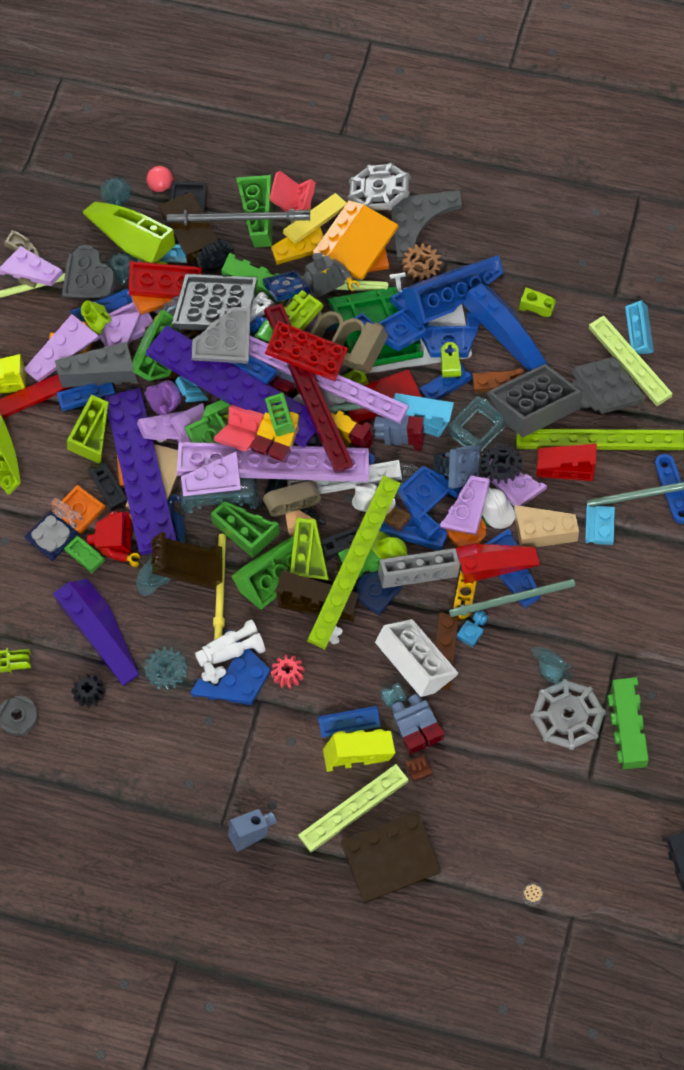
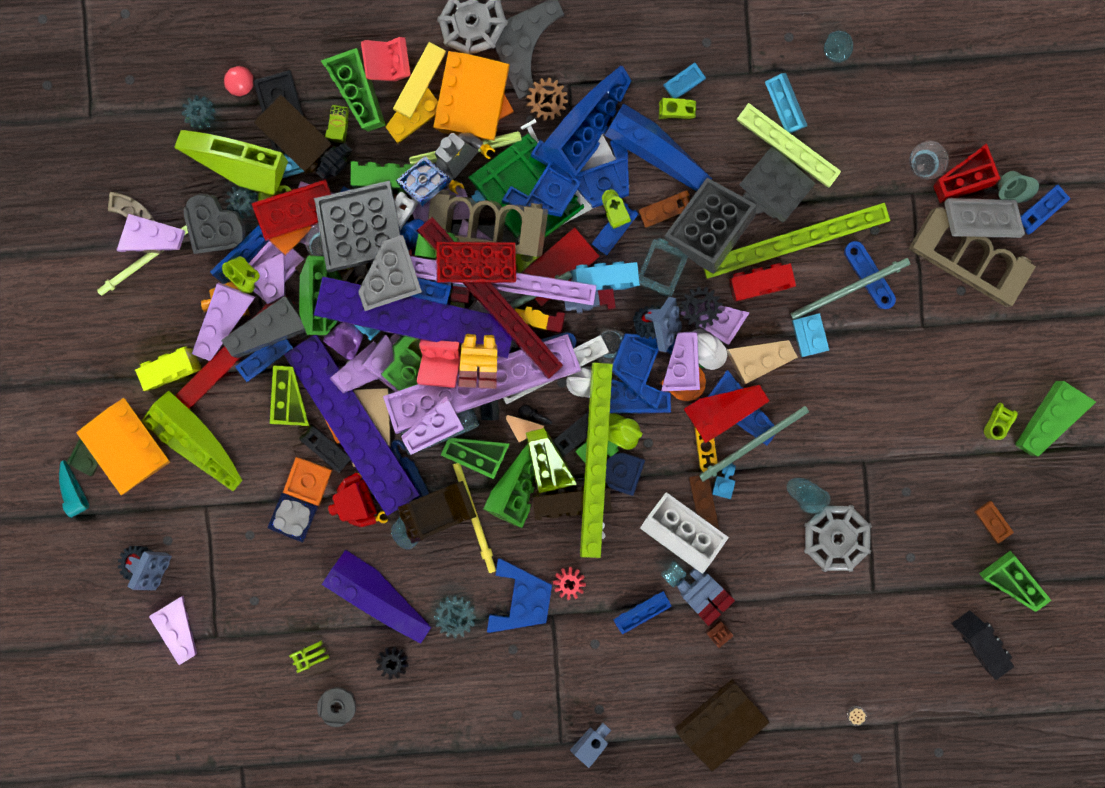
camera: 20 degrees left, 25 degrees up
(61, 510) = (295, 494): clear plate -> none
(84, 554) = (332, 527): bright green plate -> none
(212, 674) = (501, 609): white piece -> none
(227, 647) = (504, 580): white piece -> none
(231, 231) = (337, 124): none -> lime leg
(284, 425) = (471, 351): bright green slope -> none
(291, 215) = (396, 93): dark grey bar -> none
(291, 498) = (513, 414): dark tan beam -> none
(305, 312) = (455, 210): lime plate -> none
(353, 808) = (674, 692): yellowish green plate -> none
(358, 747) = (661, 638): neon yellow wedge -> none
(397, 518) = (619, 395): clear orange tile -> none
(418, 568) = (658, 443): light grey brick -> none
(552, 284) = (684, 81): none -> dark azure plate
(628, 723) = (897, 534): bright green wedge -> none

